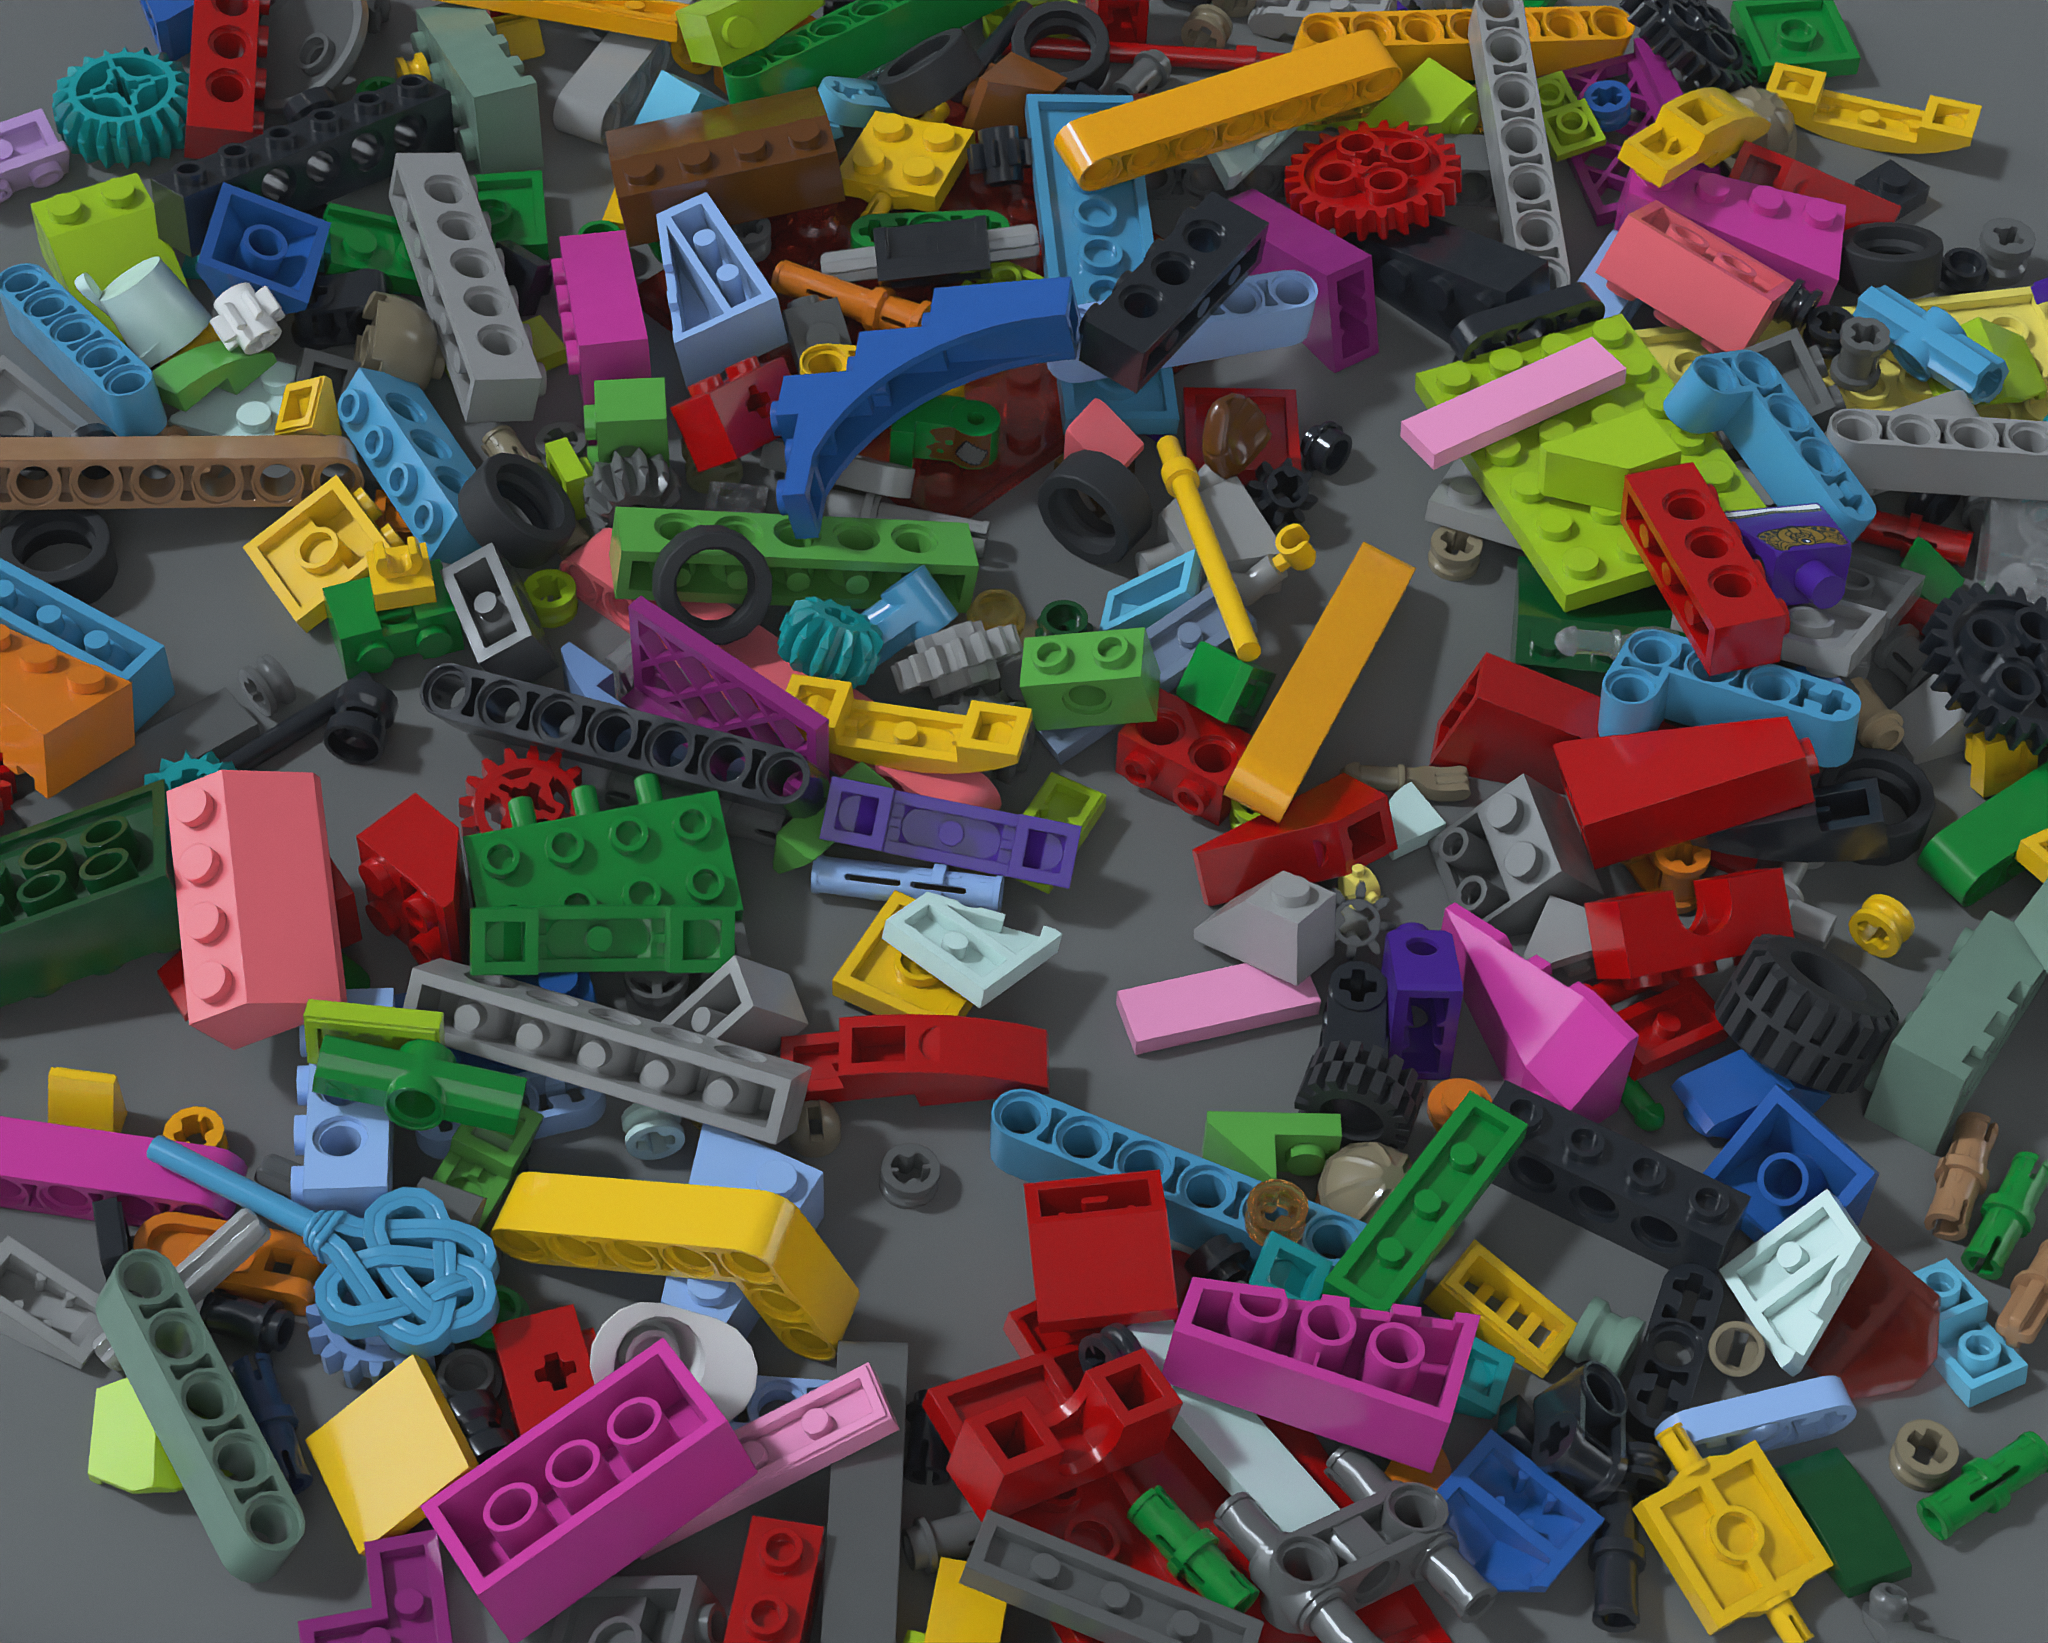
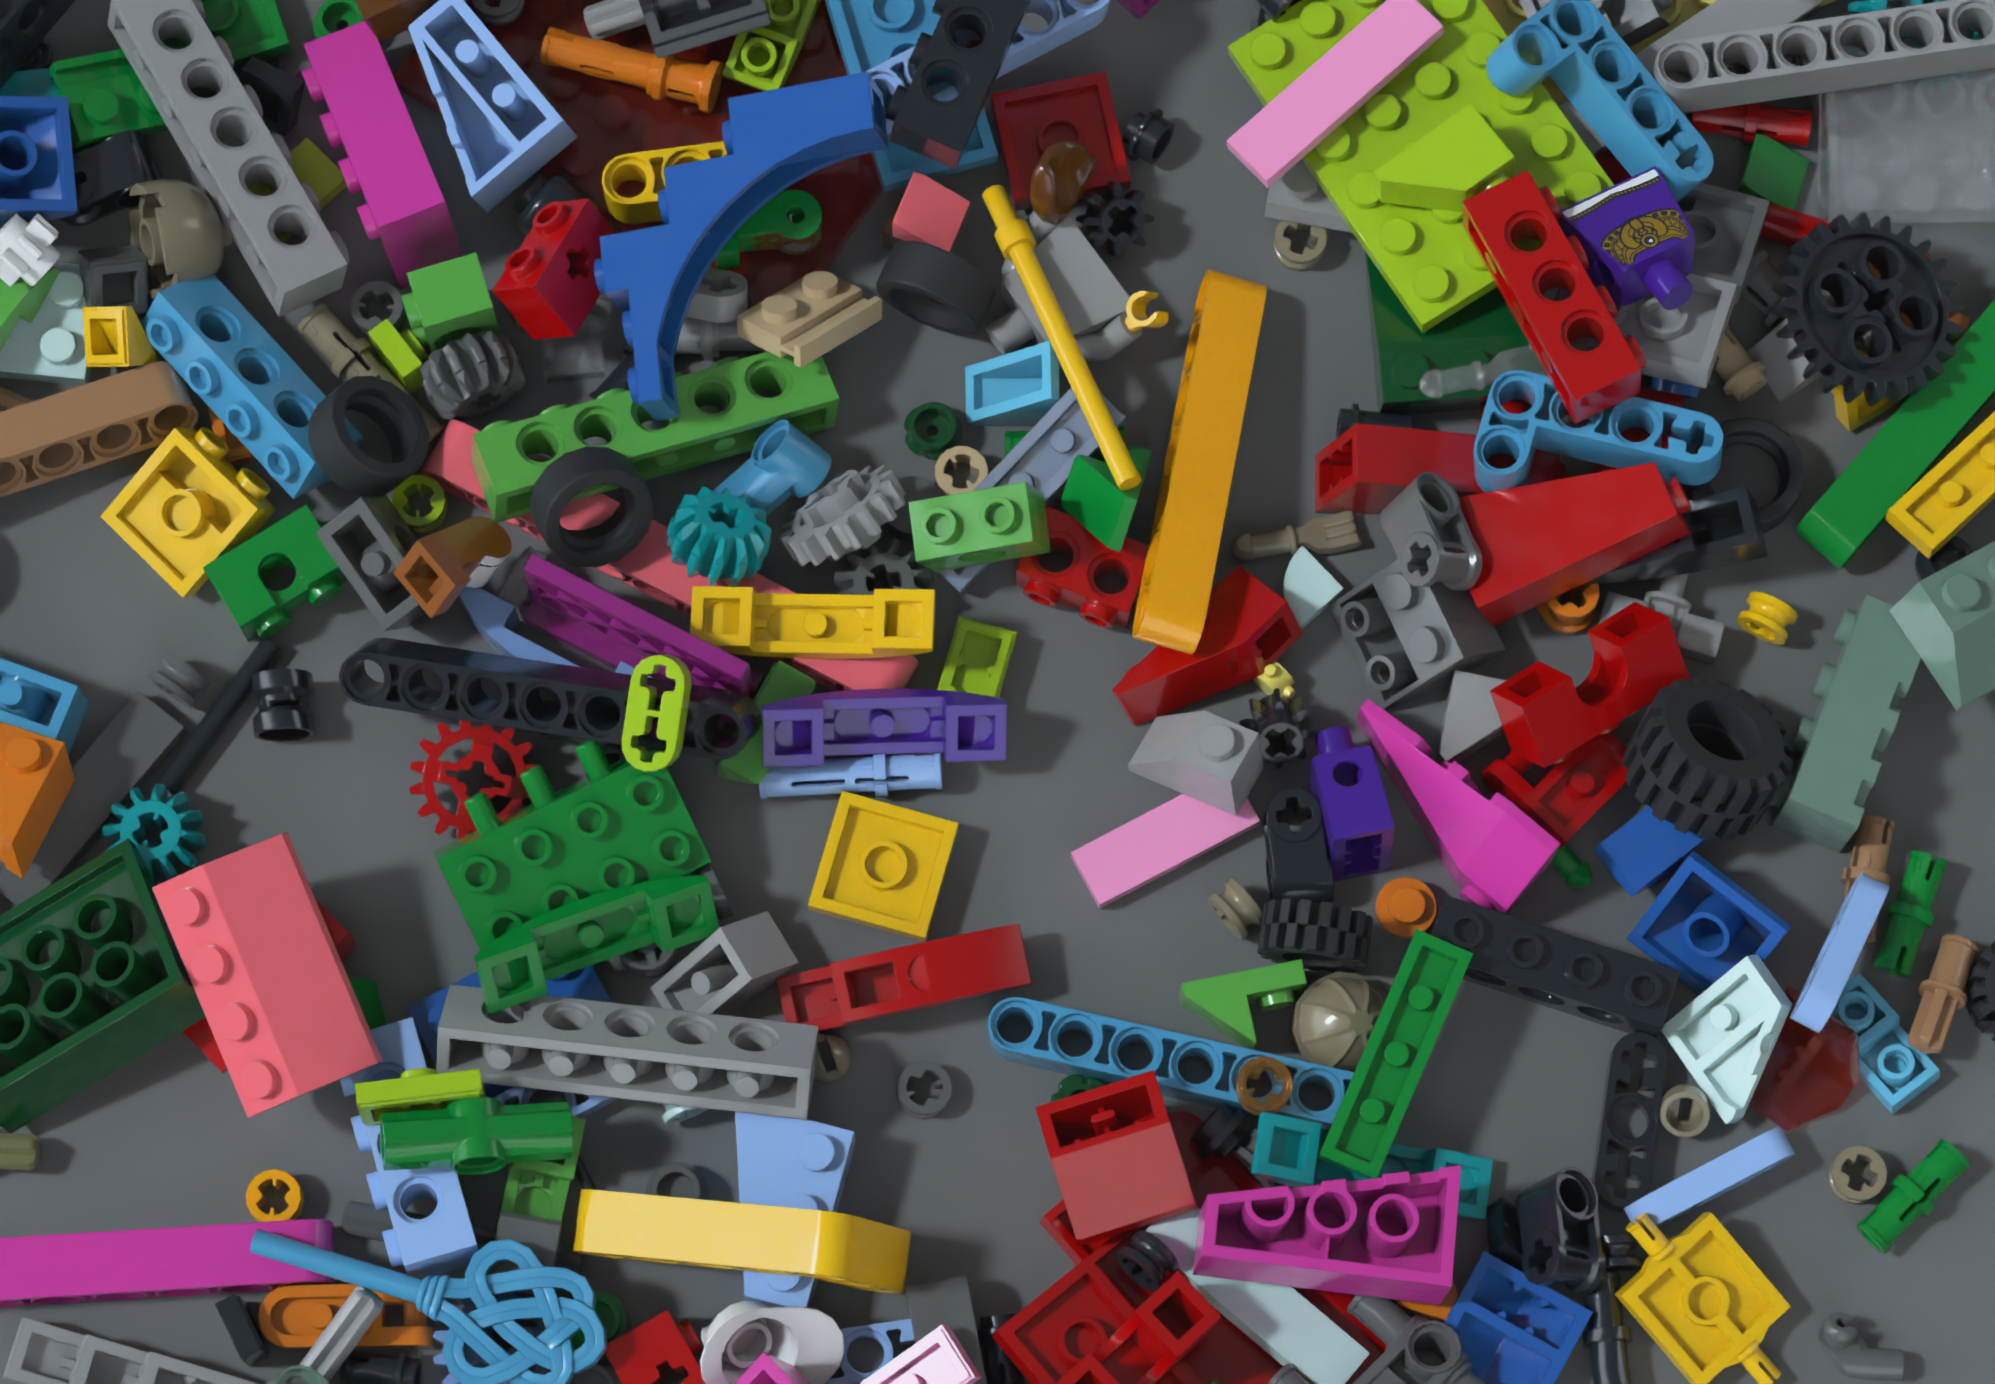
camera: 10 degrees left, 25 degrees up
(85, 1099) = (167, 1196): yellow slope -> none
(400, 575) = (277, 542): yellow tile -> none
(417, 880) = (402, 894): red slope -> none
(571, 609) = (452, 559): none -> dark orange leg
(716, 738) = (642, 709): none -> lime beam
(813, 323) = (604, 122): dark grey bracket -> none
(967, 946) = (927, 850): light aqua wing -> none
(976, 506) = (809, 317): none -> tan plate
(996, 609) = (863, 431): clear yellow plate -> none
(1278, 1070) = (1235, 909): none -> dark tan bush
(1500, 1281) = (1443, 1120): yellow slope -> none
(1548, 755) = (1429, 533): none -> dark grey piece
(1605, 1337) = (1569, 1127): sand green wheel -> none
(1846, 1522) = (1794, 1258): dark green slope -> none
(1929, 1208) = (1839, 952): none -> light blue beam

